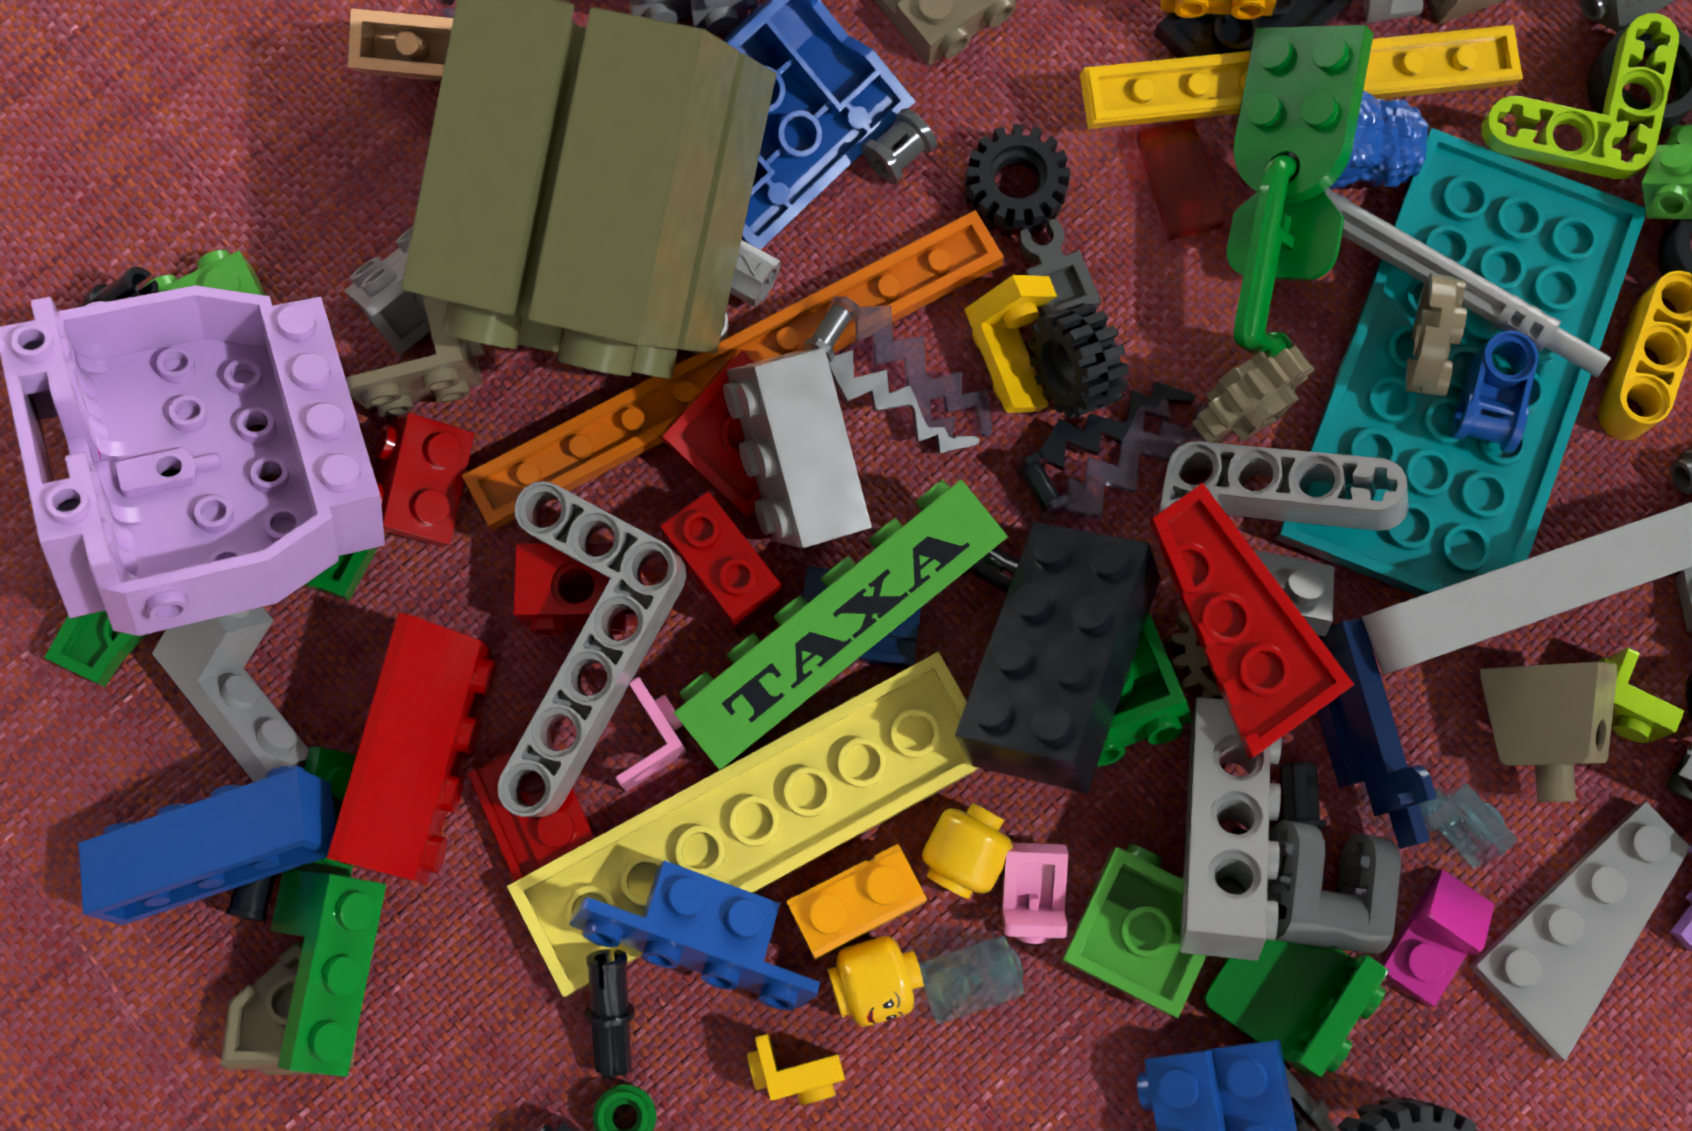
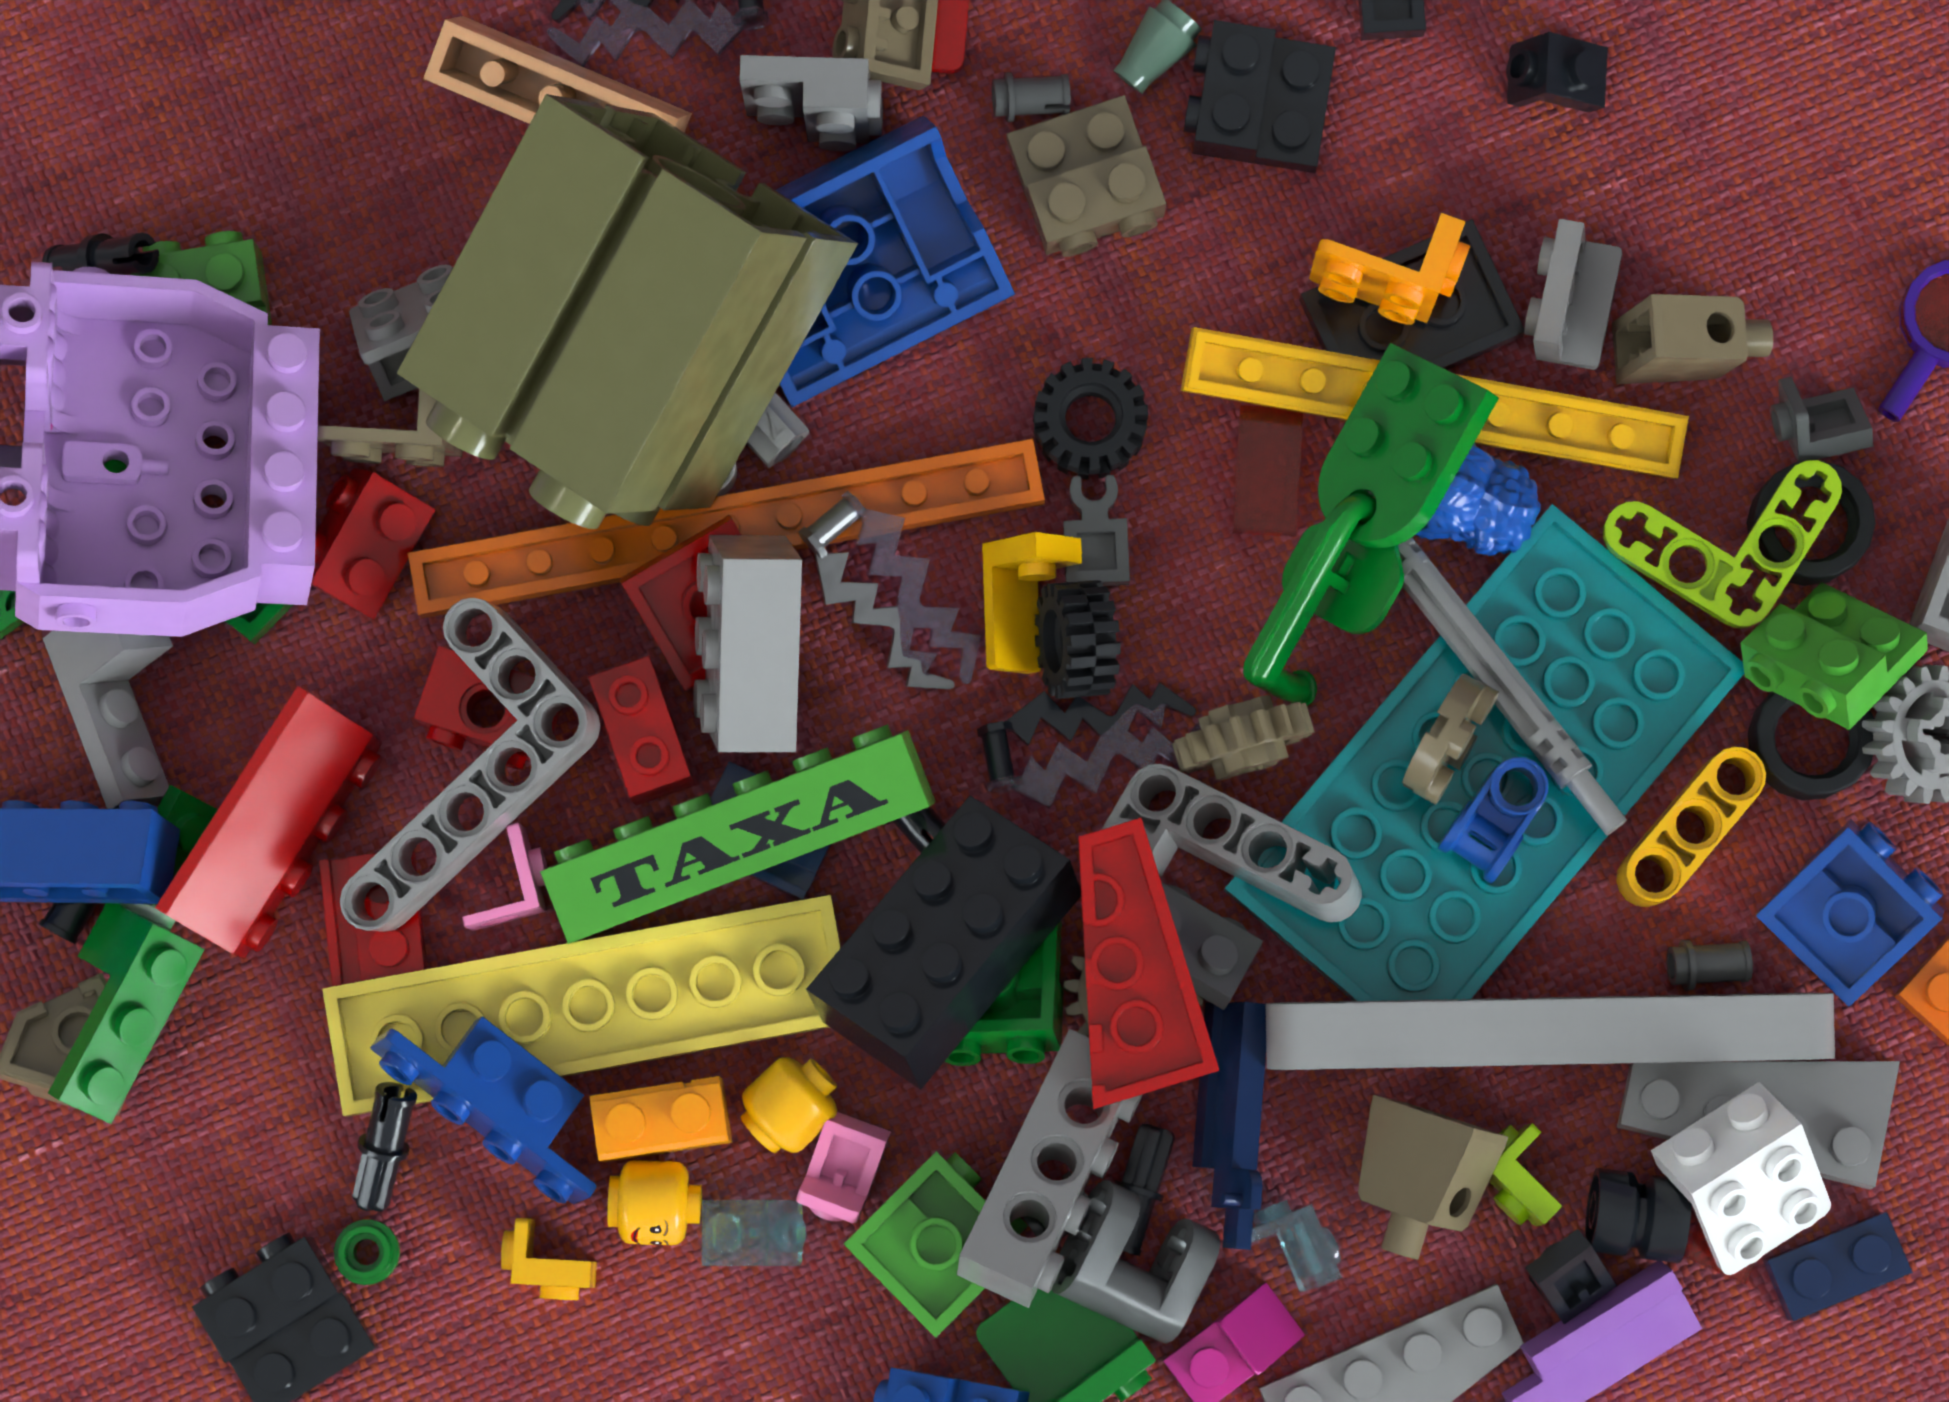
camera: 20 degrees right, 5 degrees up
(907, 129) = (992, 323): dark grey bush -> none

